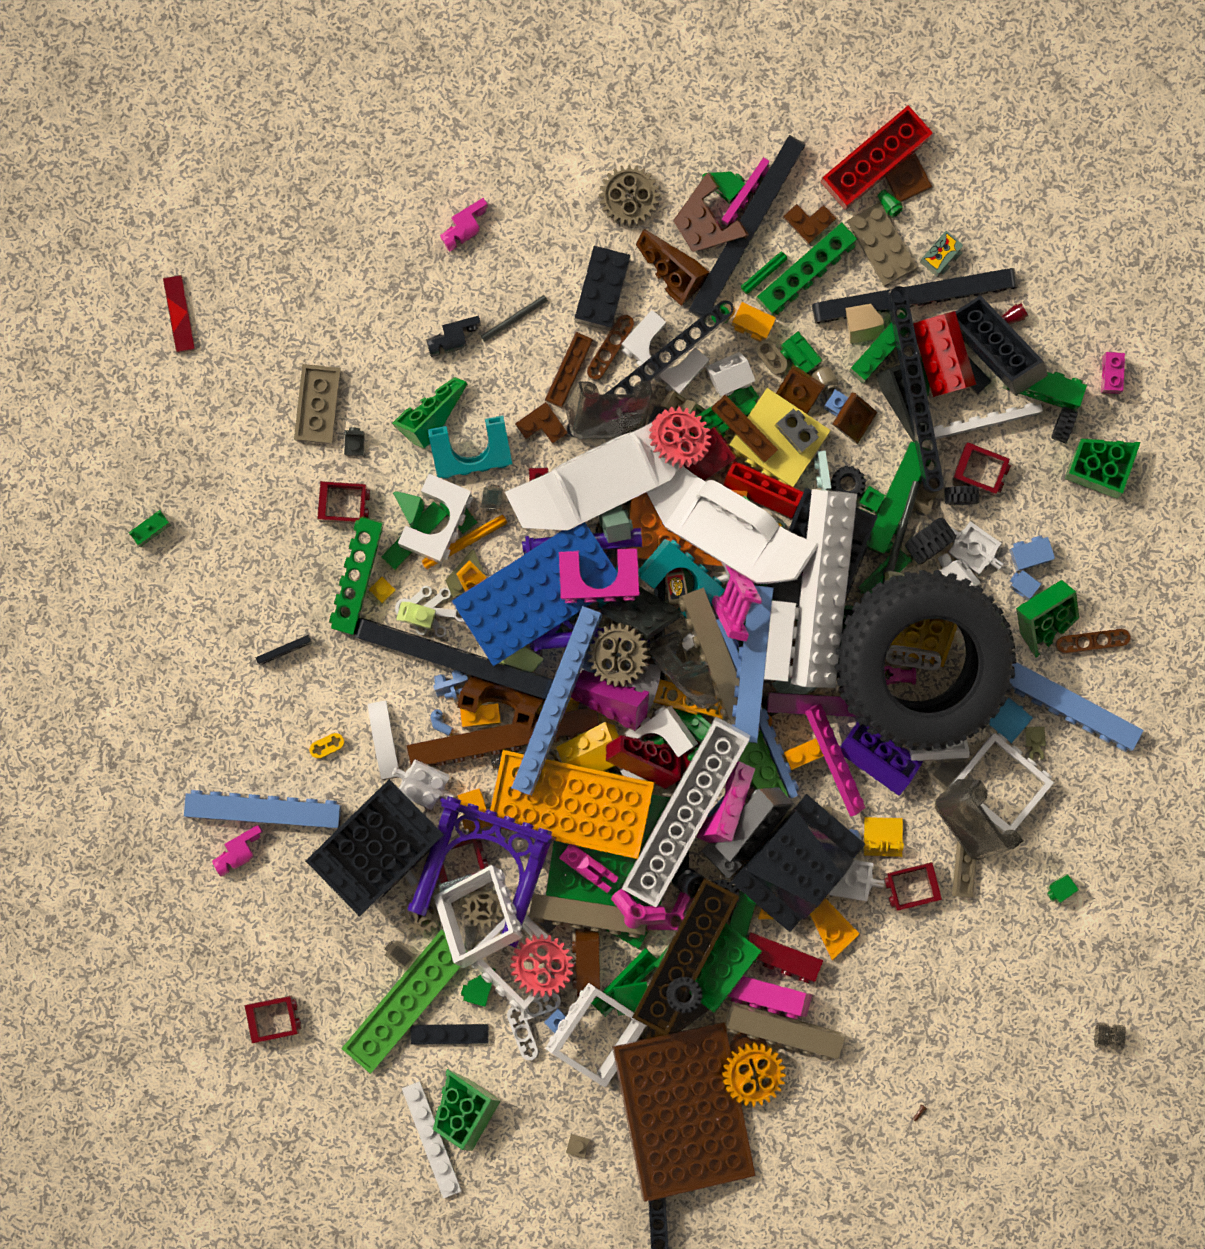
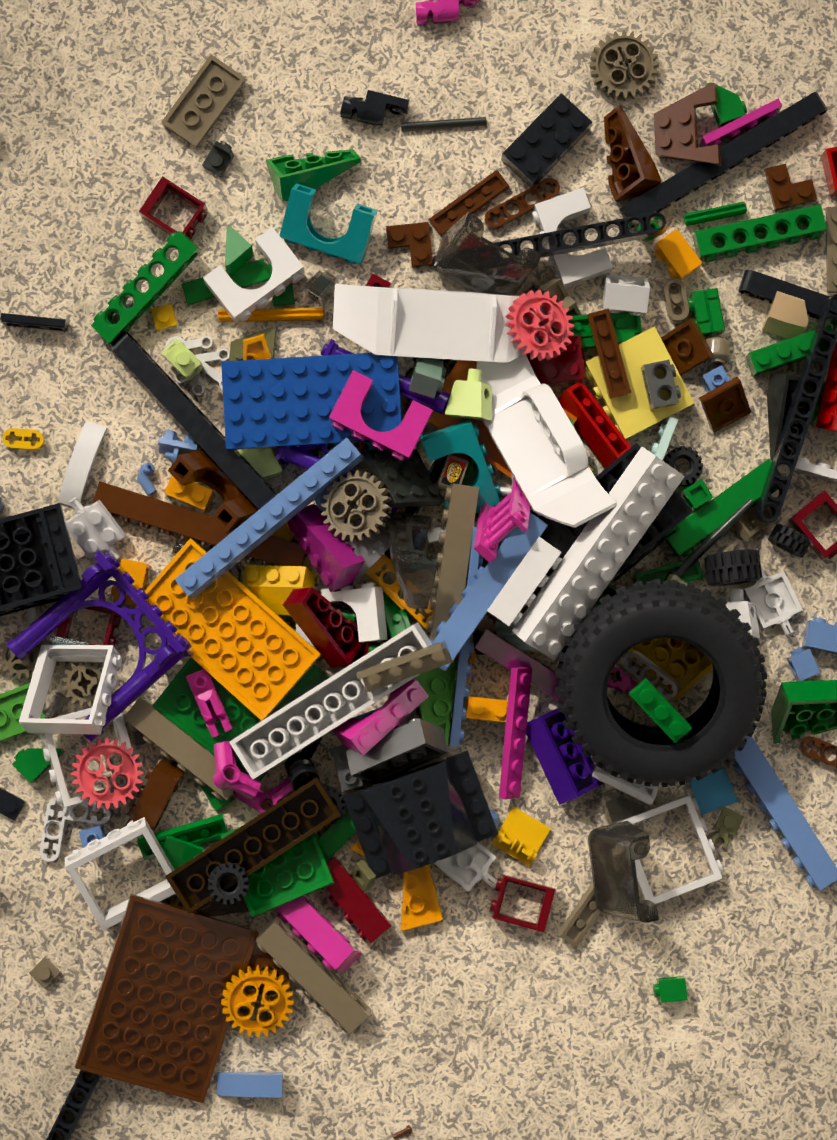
camera: 30 degrees right, 0 degrees up
(658, 522) = (470, 398): none -> yellowish green torso
(726, 755) = (405, 666): none -> dark tan fence
(780, 934) = (363, 875): none -> olive plate
(783, 1141) = (250, 1084): none -> medium blue slope
(937, 681) = (660, 710): none -> green plate

